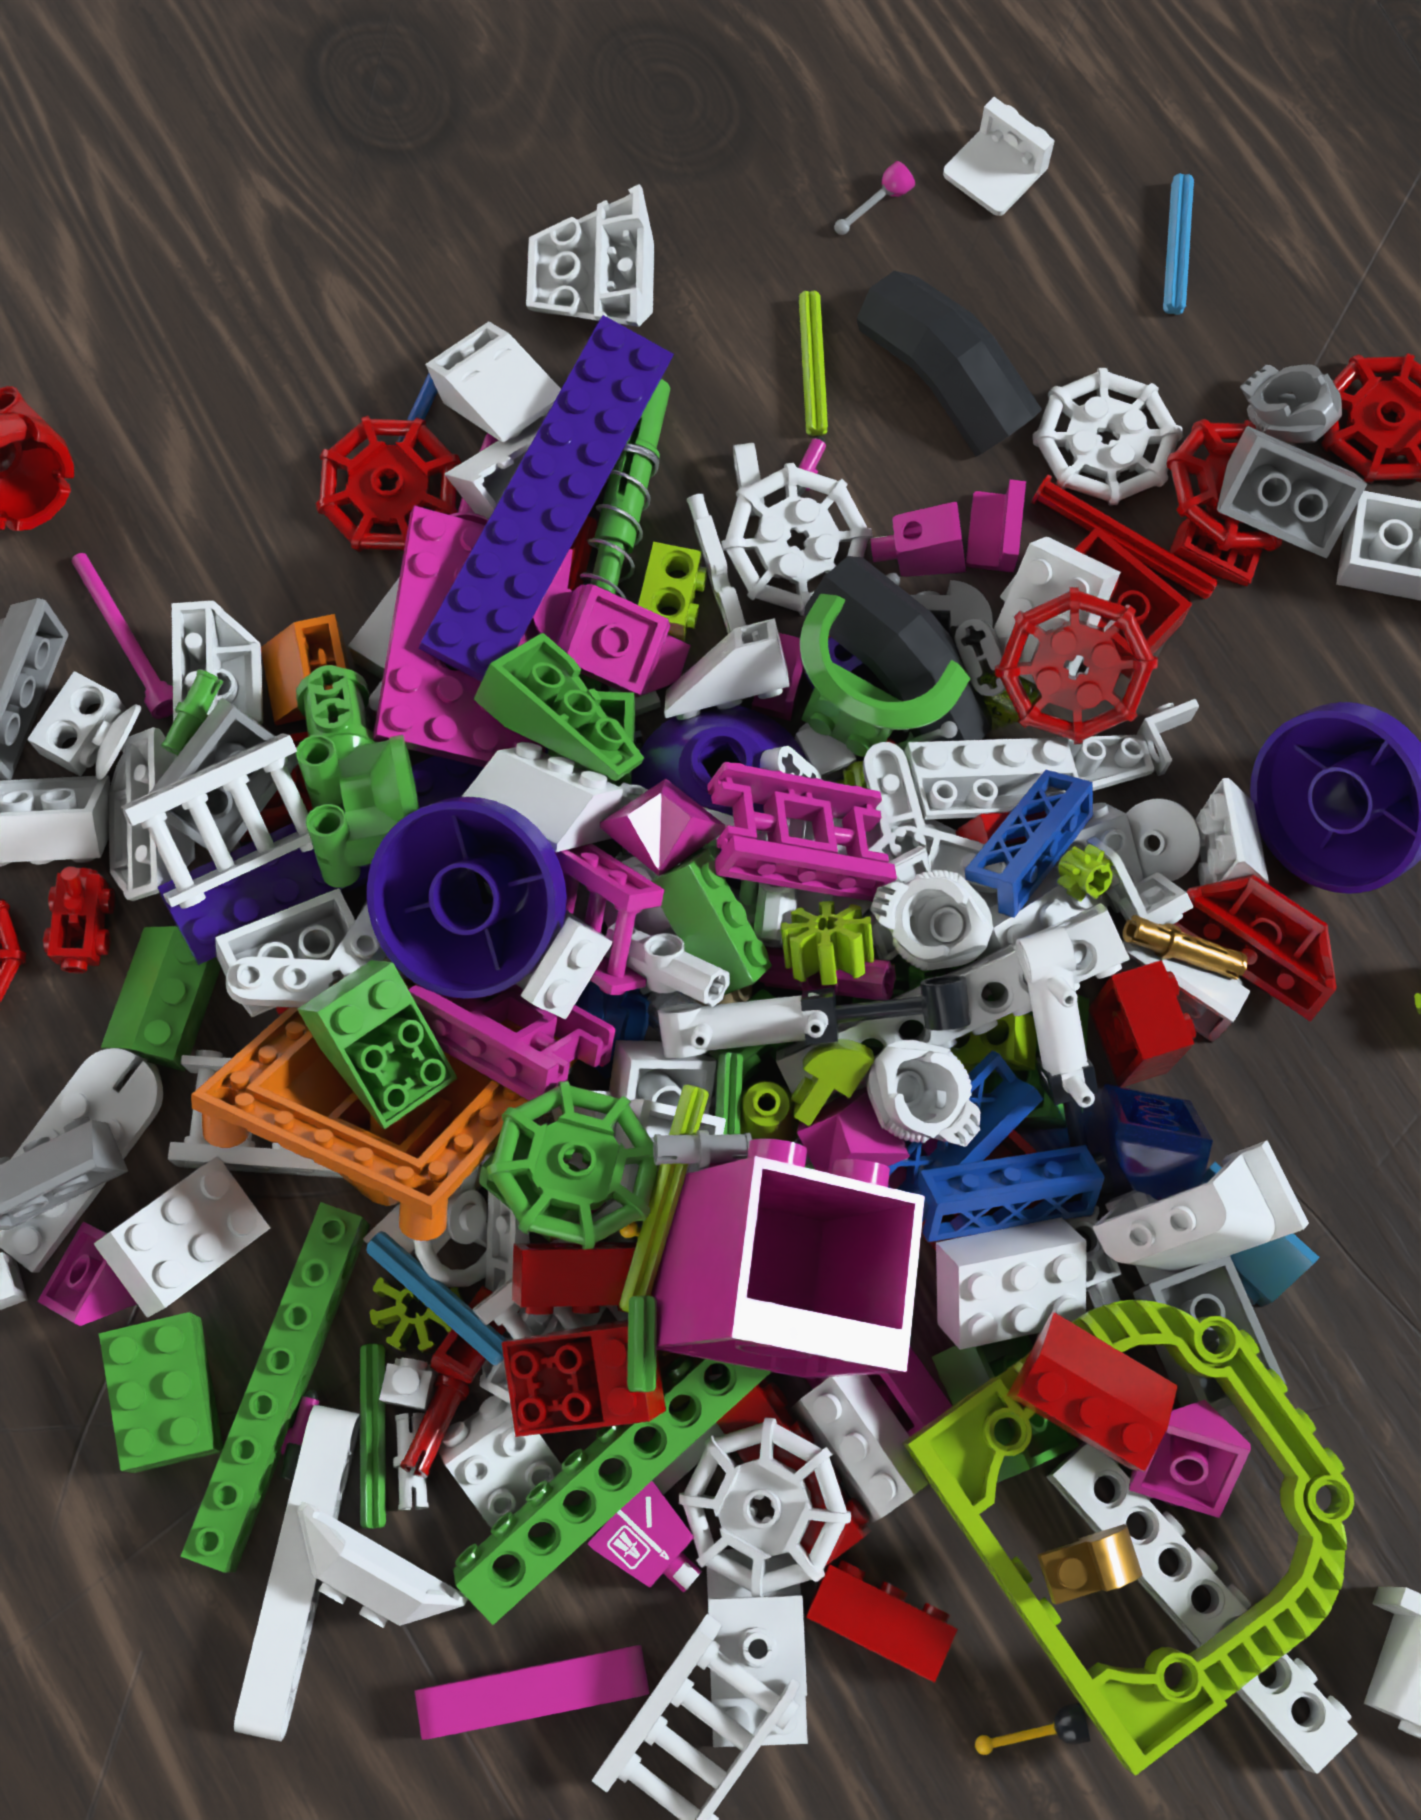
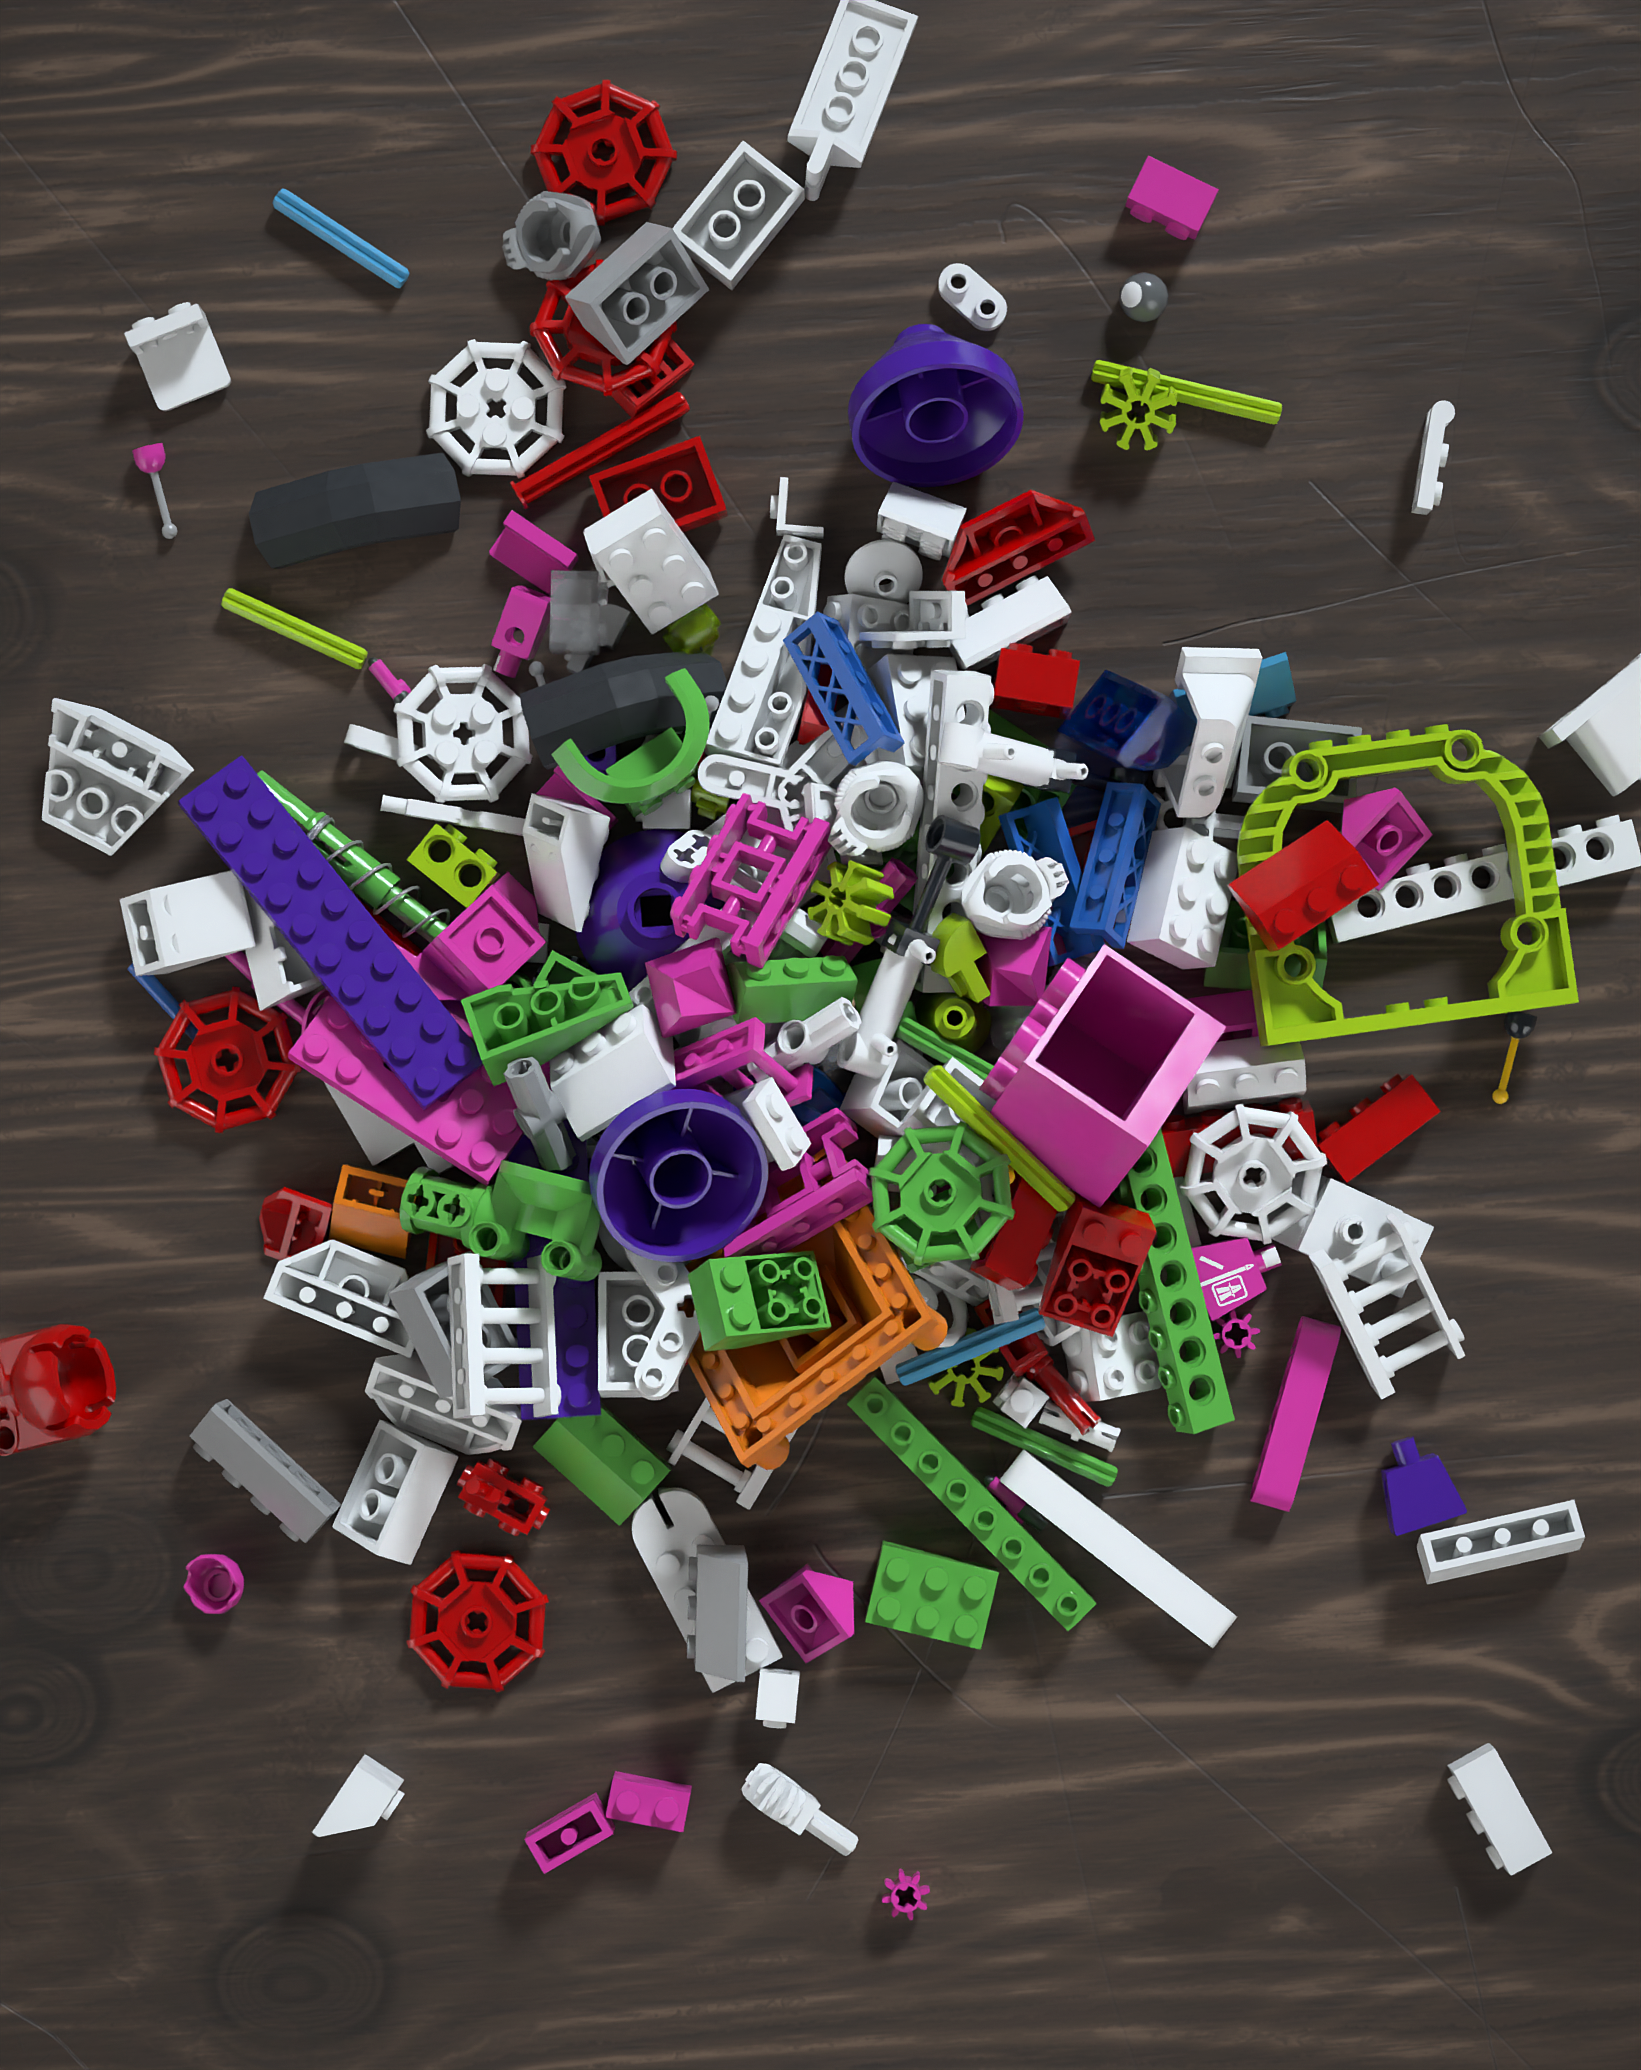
camera: 60 degrees left, 15 degrees up
(68, 719) = (315, 1431): white brick -> none
(112, 738) = (362, 1398): white dish -> none
(158, 693) = (330, 1345): dark pink piece -> none
(182, 1236) = (822, 1523): white brick -> none
(192, 711) = (380, 1324): bright green pin -> none
(262, 607) = (293, 1223): none -> red slope
(370, 1573) = (1152, 1494): white wedge -> none
(468, 749) = (539, 1114): none -> light grey piece
(574, 1576) = (1243, 1340): none -> dark pink gear
(642, 1343) = (1100, 1209): bright green axle -> none
(700, 1148) = (981, 1092): light grey pin -> none
(965, 573) = (576, 612): none -> clear brick
(972, 659) = (660, 630): light grey beam -> none
(1085, 688) = (728, 586): red plate -> none
(1085, 872) = (897, 666): lime gear -> none
(1090, 1565) = (1422, 952): pearl gold brick -> none
(1169, 942) = (982, 625): pearl gold pin -> none

